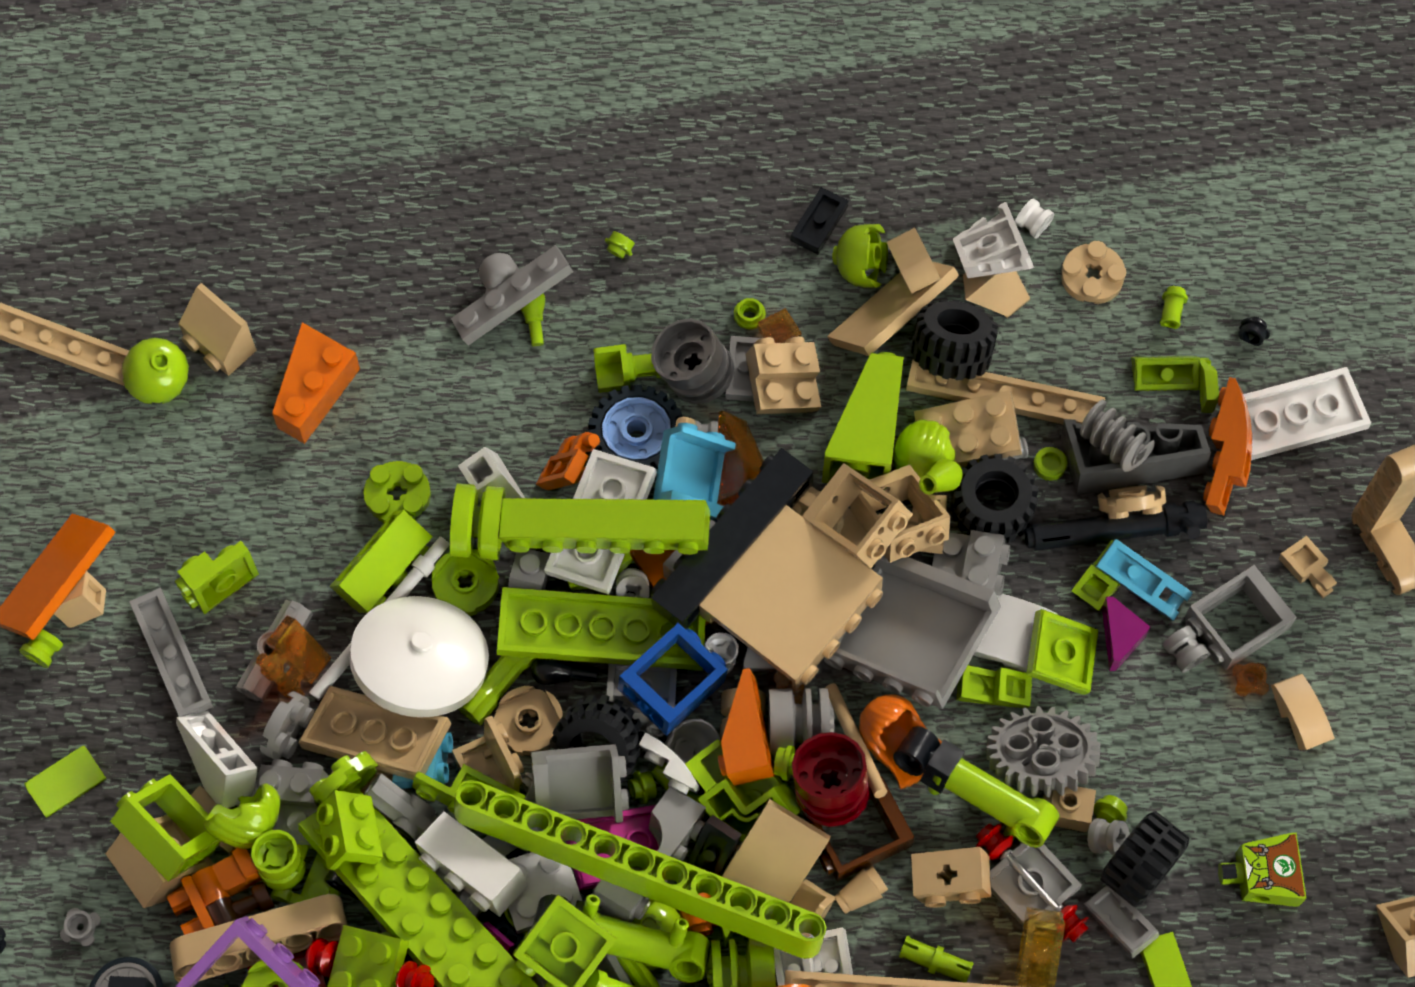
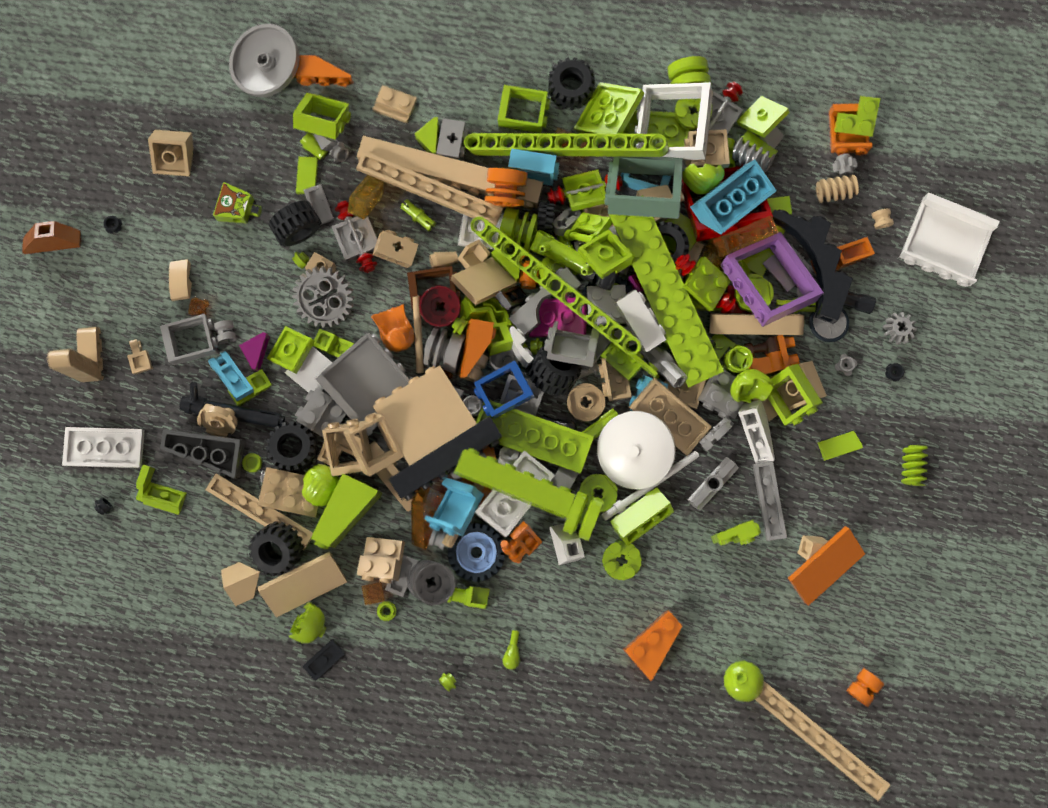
camera: 160 degrees left, 15 degrees up
(41, 648) = (839, 523): lime wheel -> none
(216, 331) = (703, 695): tan slope -> none
(299, 651) = (704, 473): clear orange plate -> none
(346, 776) = (694, 388): lime plate -> none
(348, 829) = (699, 354): lime bracket -> none
(509, 290) = (522, 667): light grey plate -> none
(913, 260) = (279, 607): tan beam -> none
(942, 477) = (316, 459): lime cone -> none
(946, 769) = (375, 298): lime piece -> none
(993, 246) = (229, 603): white wing -> none
(1034, 218) = (197, 619): white wheel -> none
(1090, 289) = (168, 568): tan plate -> none
(1106, 836) = (308, 243): light grey wheel -> none
(1114, 439) = (211, 451): light grey piece -> none
(1174, 299) = (142, 535): lime pin -> none
(1232, 435) = (144, 440): orange slope -> none

